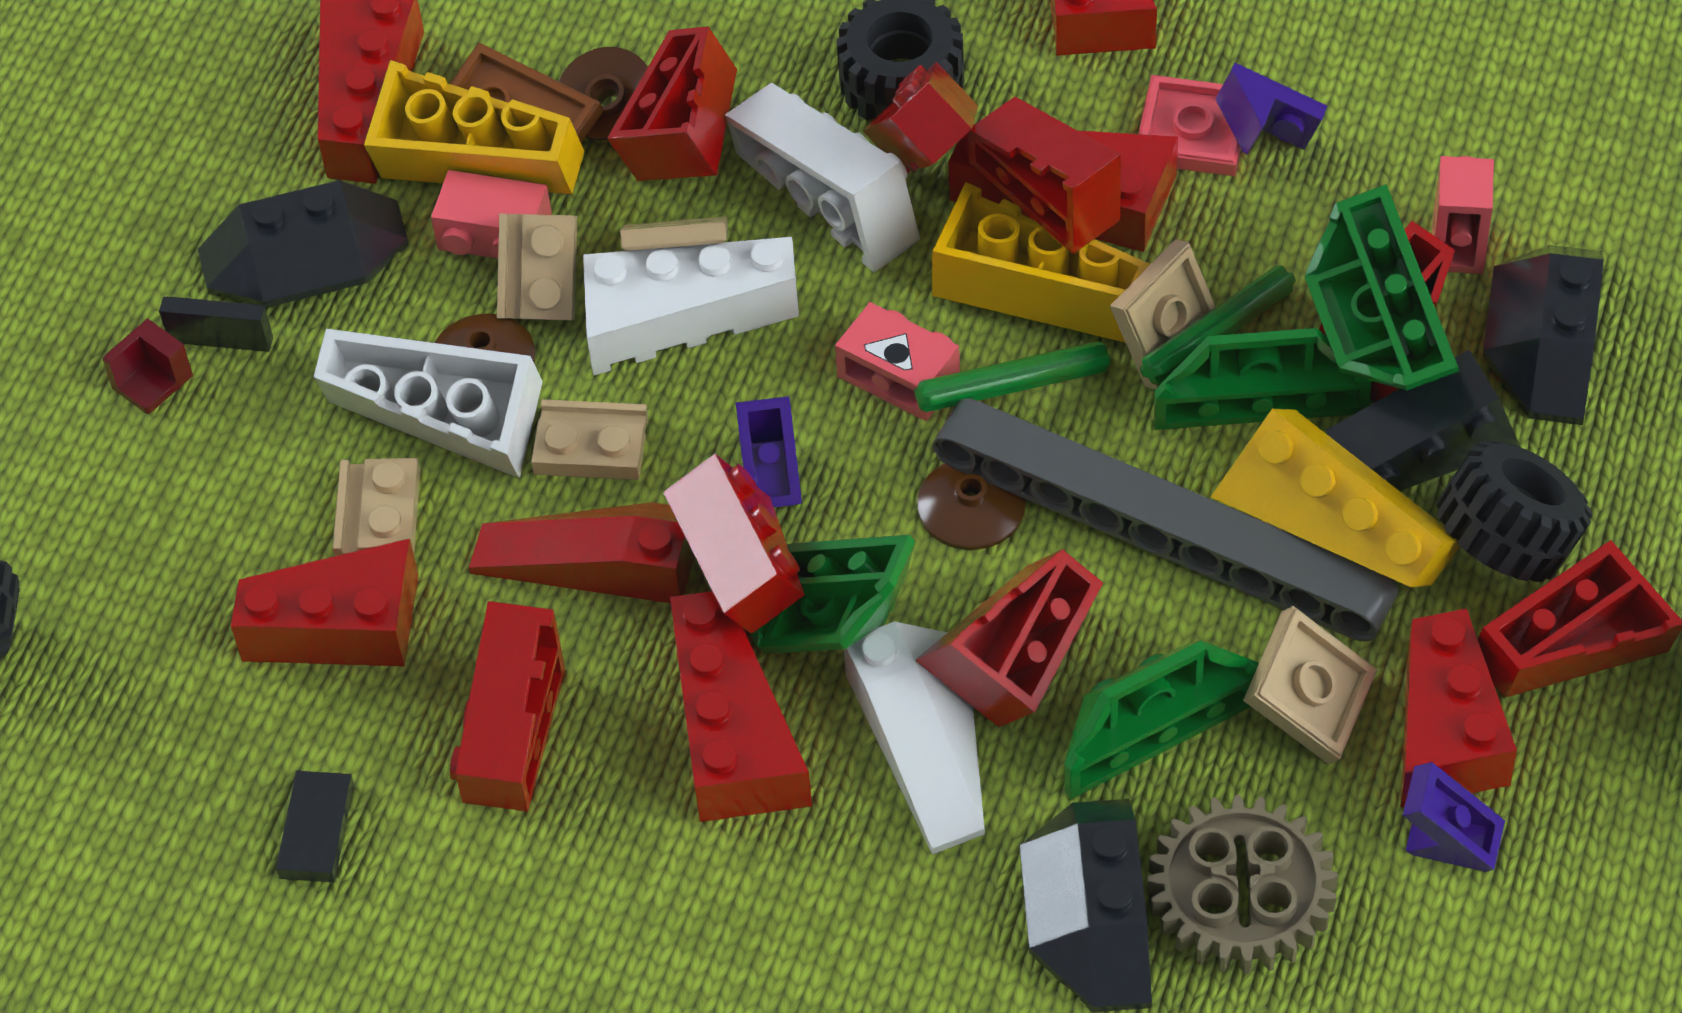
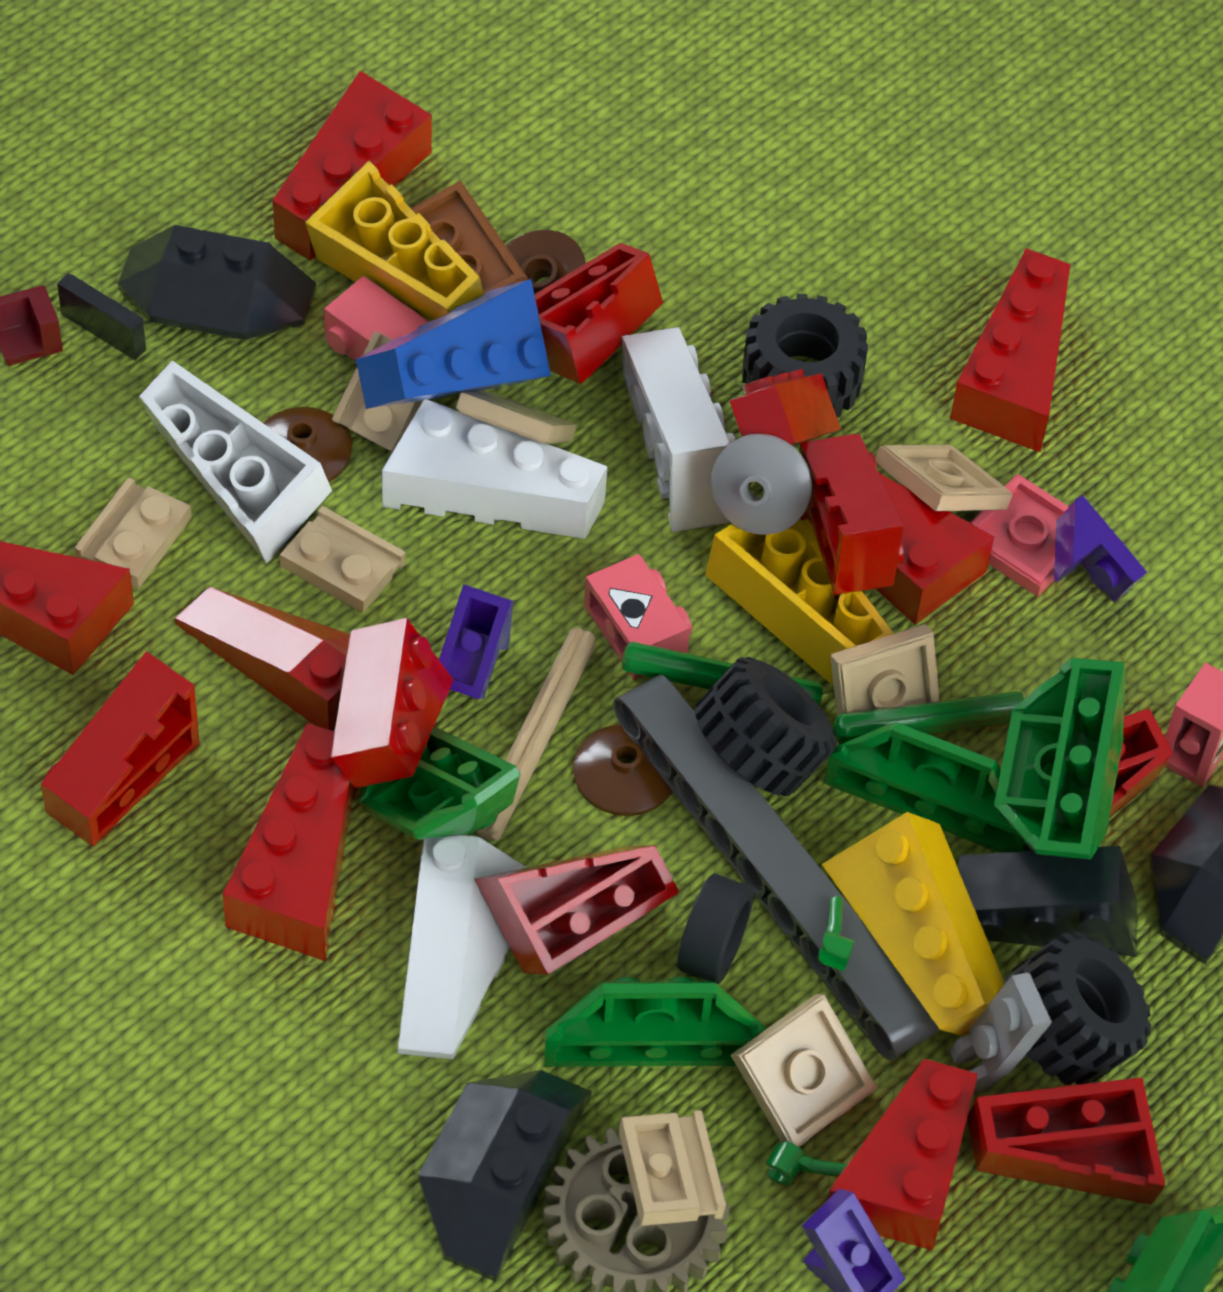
camera: 20 degrees right, 0 degrees up
(600, 189) = (468, 350): none -> blue wedge
(868, 474) = (544, 718): none -> tan axle
(948, 159) = (774, 466): none -> light grey dish
(1087, 399) = (765, 726): none -> black tyre
(1100, 105) = (943, 477): none -> tan tile
(1155, 598) = (715, 928): none -> black tyre
(1258, 823) = (671, 1168): none -> tan plate
(1272, 562) = (835, 948): none -> green hand
(1342, 767) = (789, 1159): none -> green hand
(1470, 556) = (1004, 1031): none -> light grey hinge

